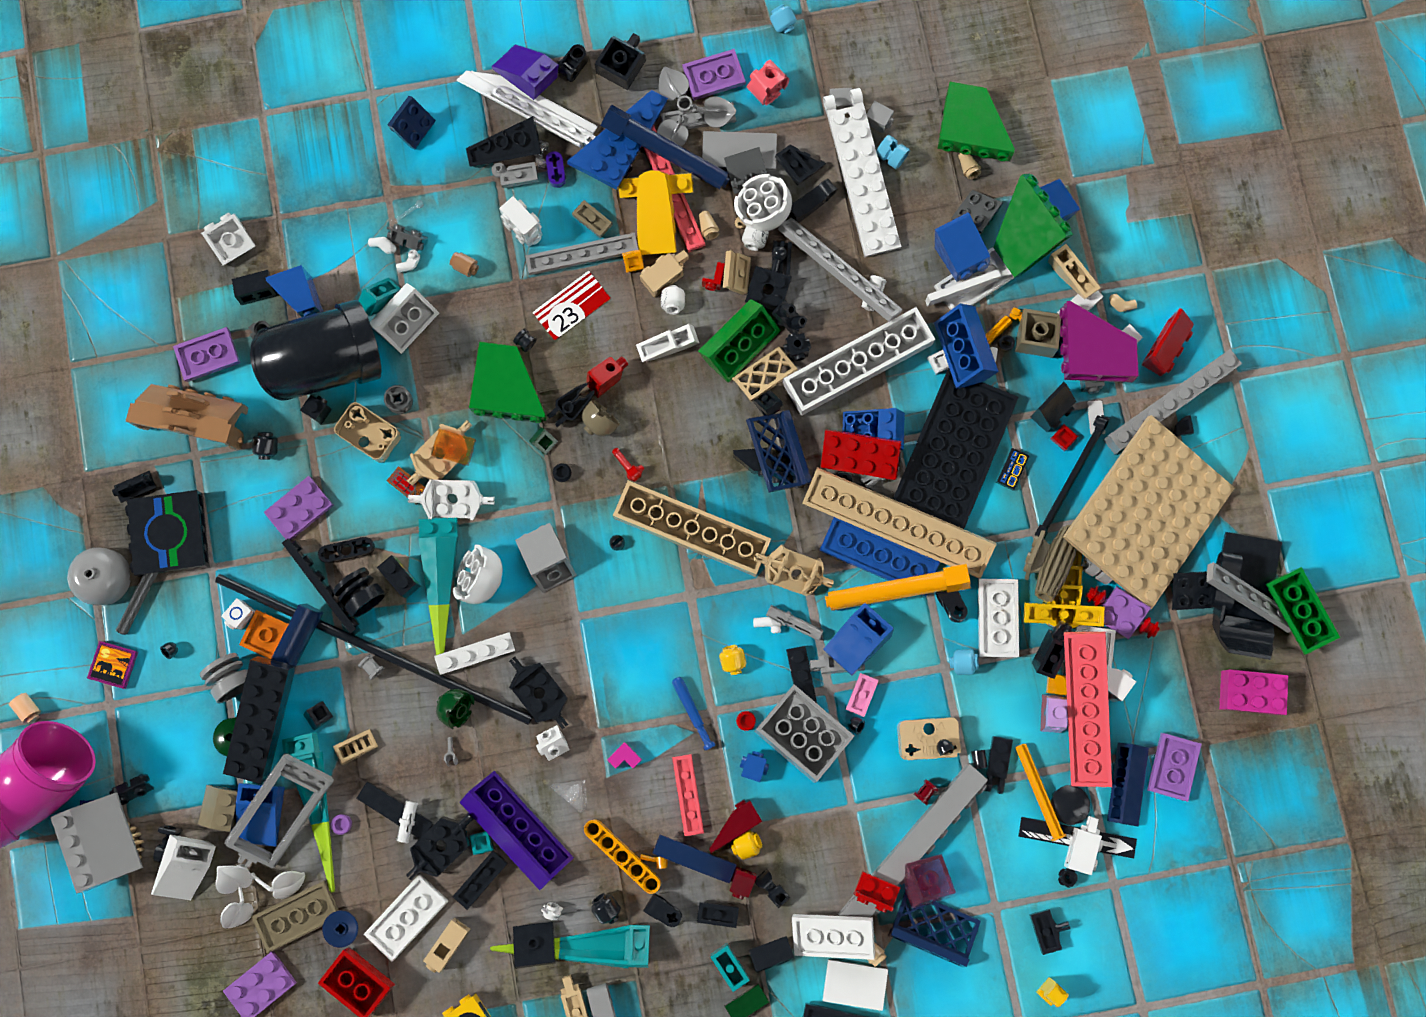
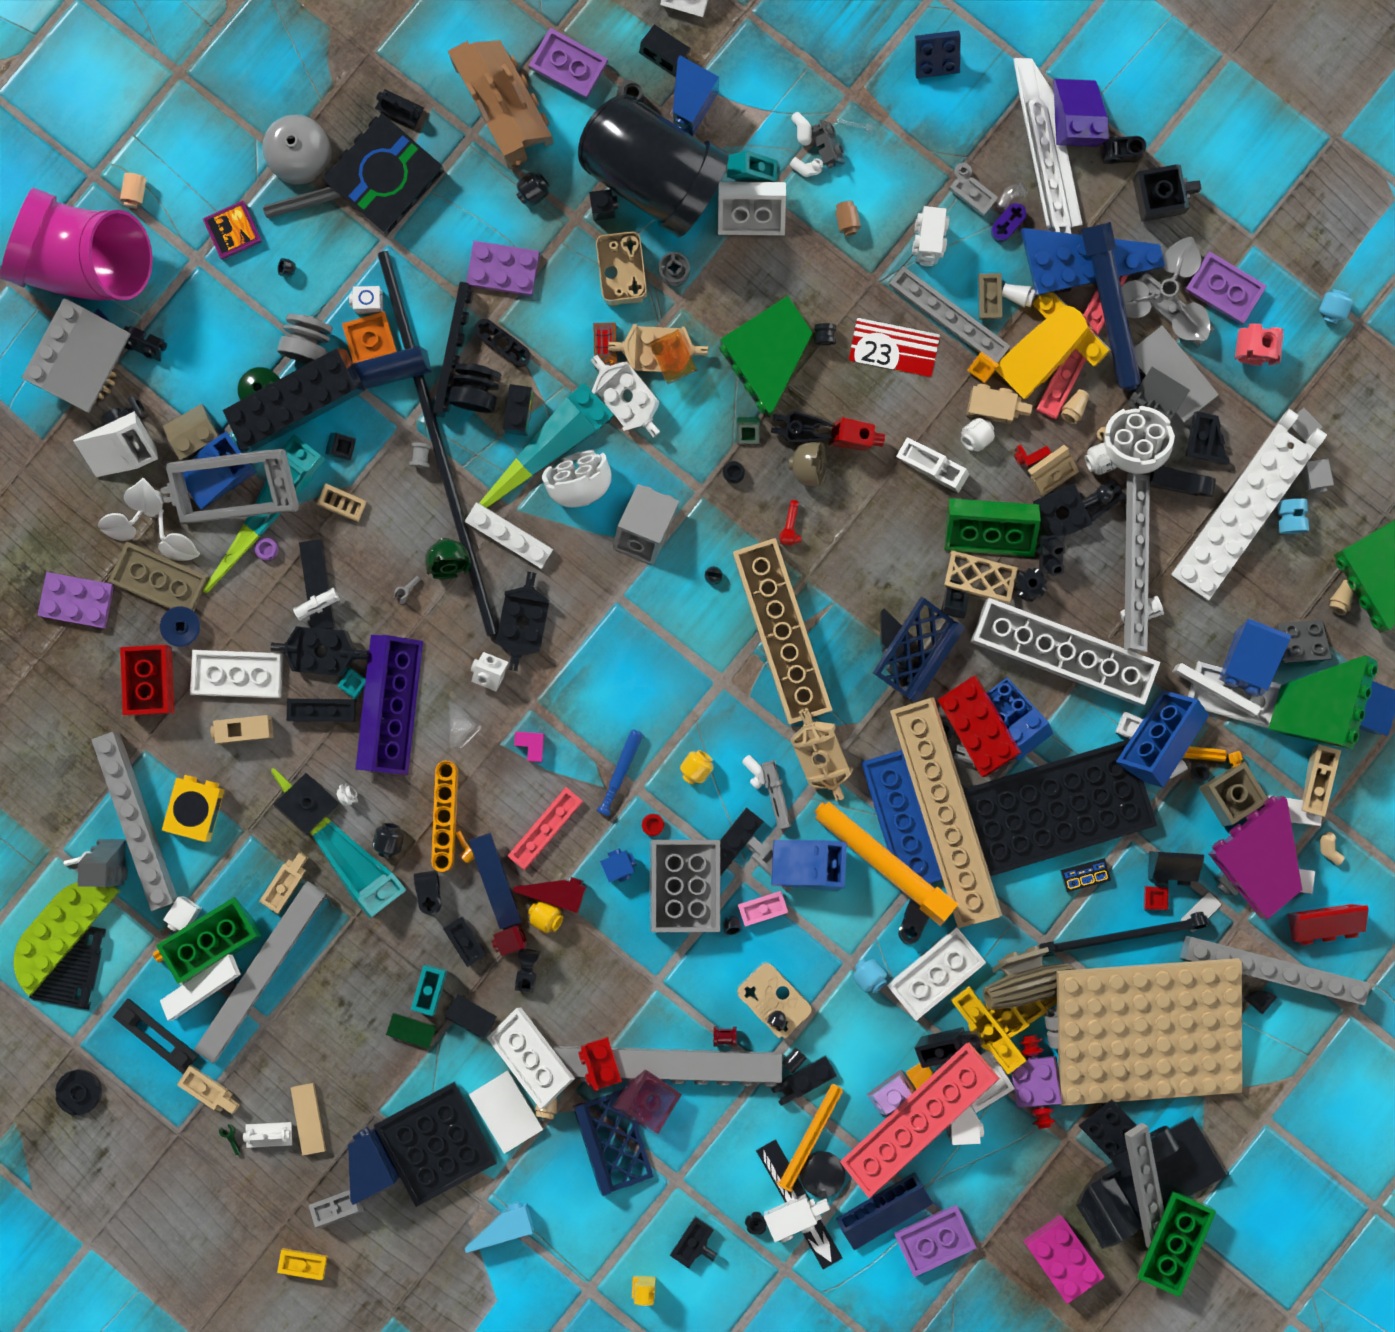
camera: 55 degrees right, 5 degrees up
(511, 143) = (994, 160): black wing -> none
(606, 200) = (1019, 294): none -> white cone

